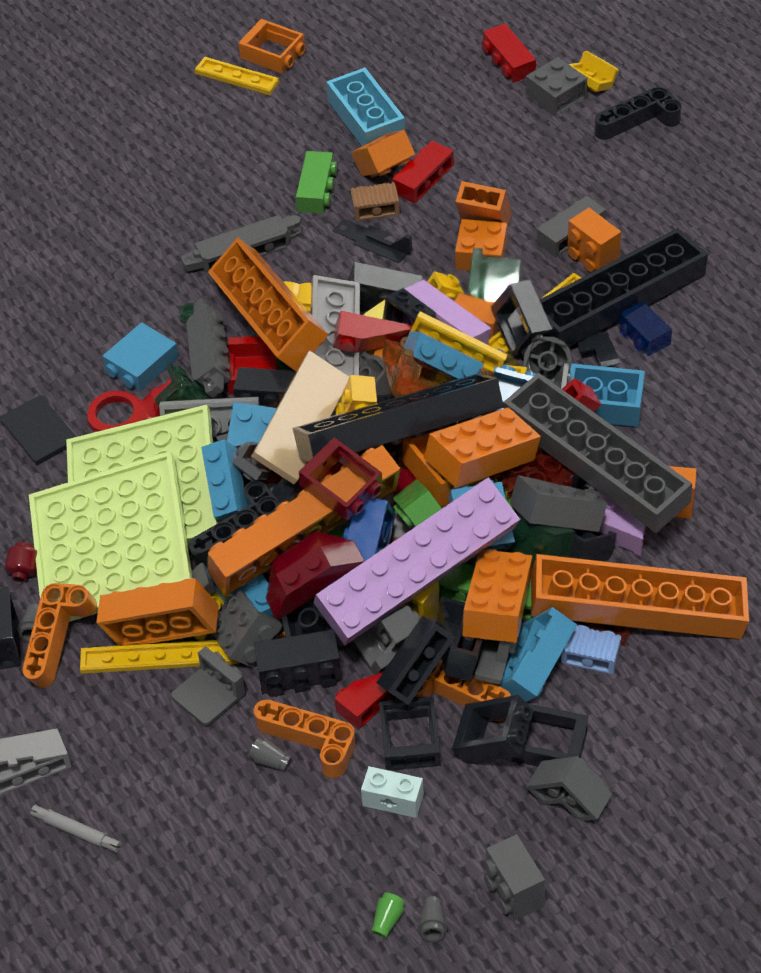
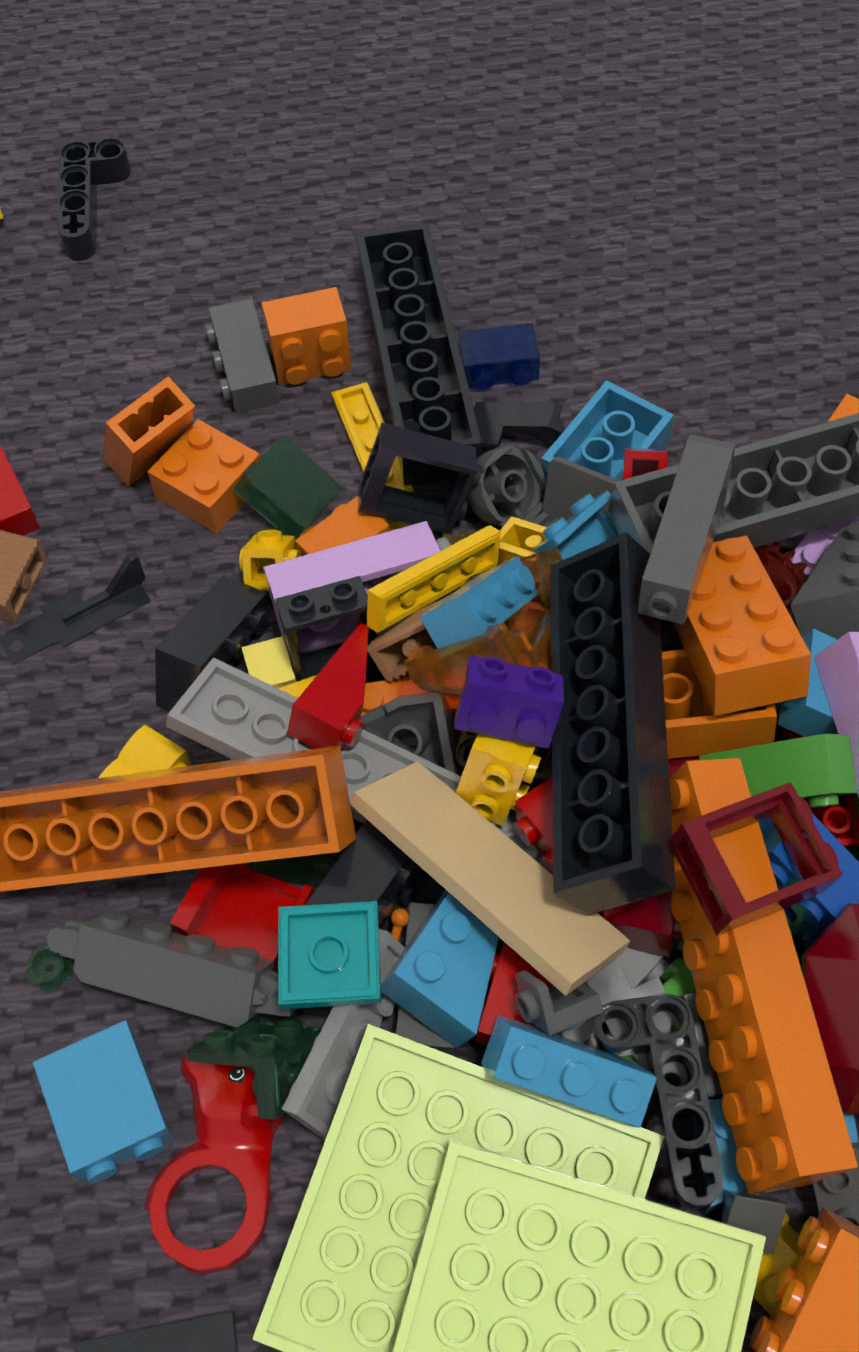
camera: 65 degrees left, 10 degrees up
(234, 383) = (329, 955): none -> teal tile
(378, 373) = (510, 701): none -> dark purple bracket
(506, 395) = (686, 529): none -> dark grey slope

